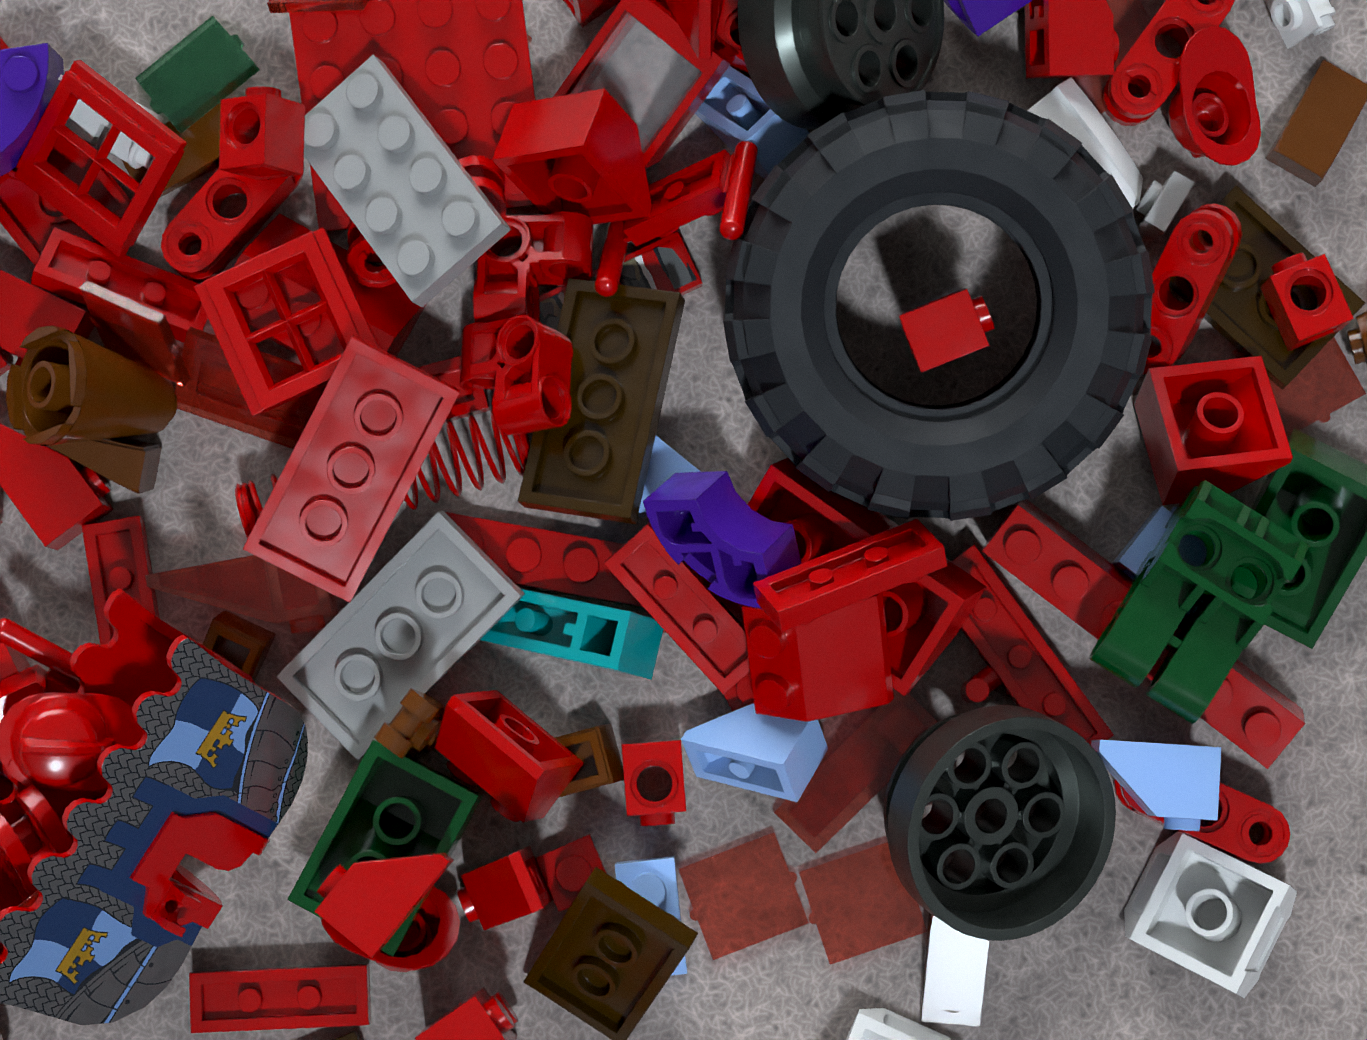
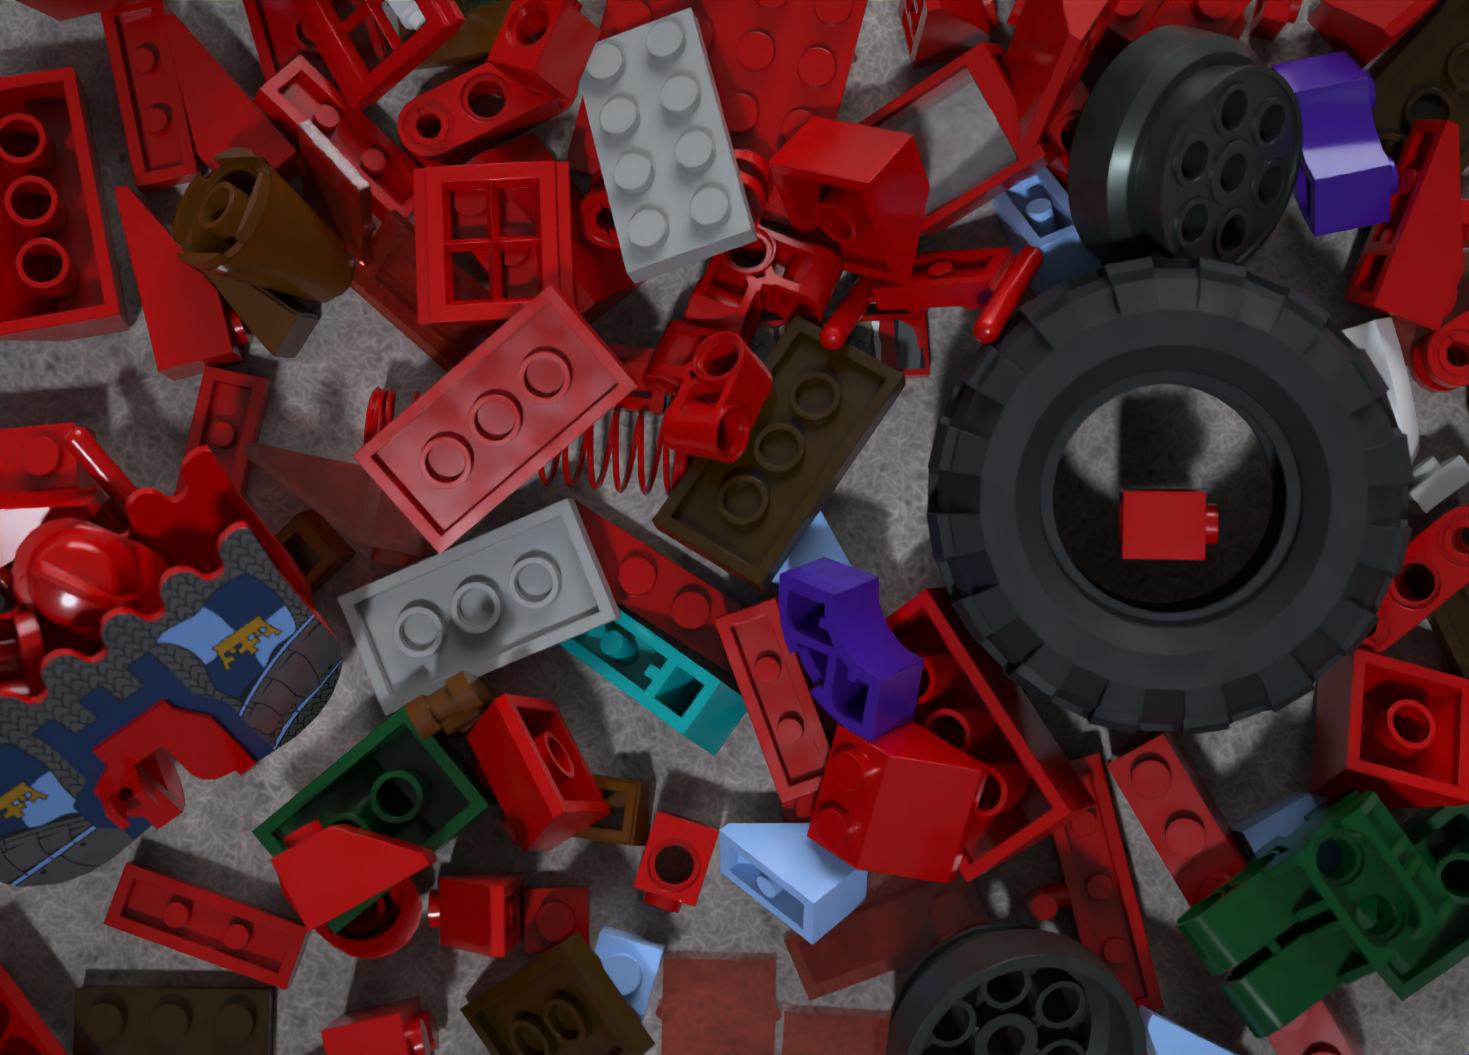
camera: 20 degrees right, 0 degrees up
(850, 575) = (963, 739): red plate -> none

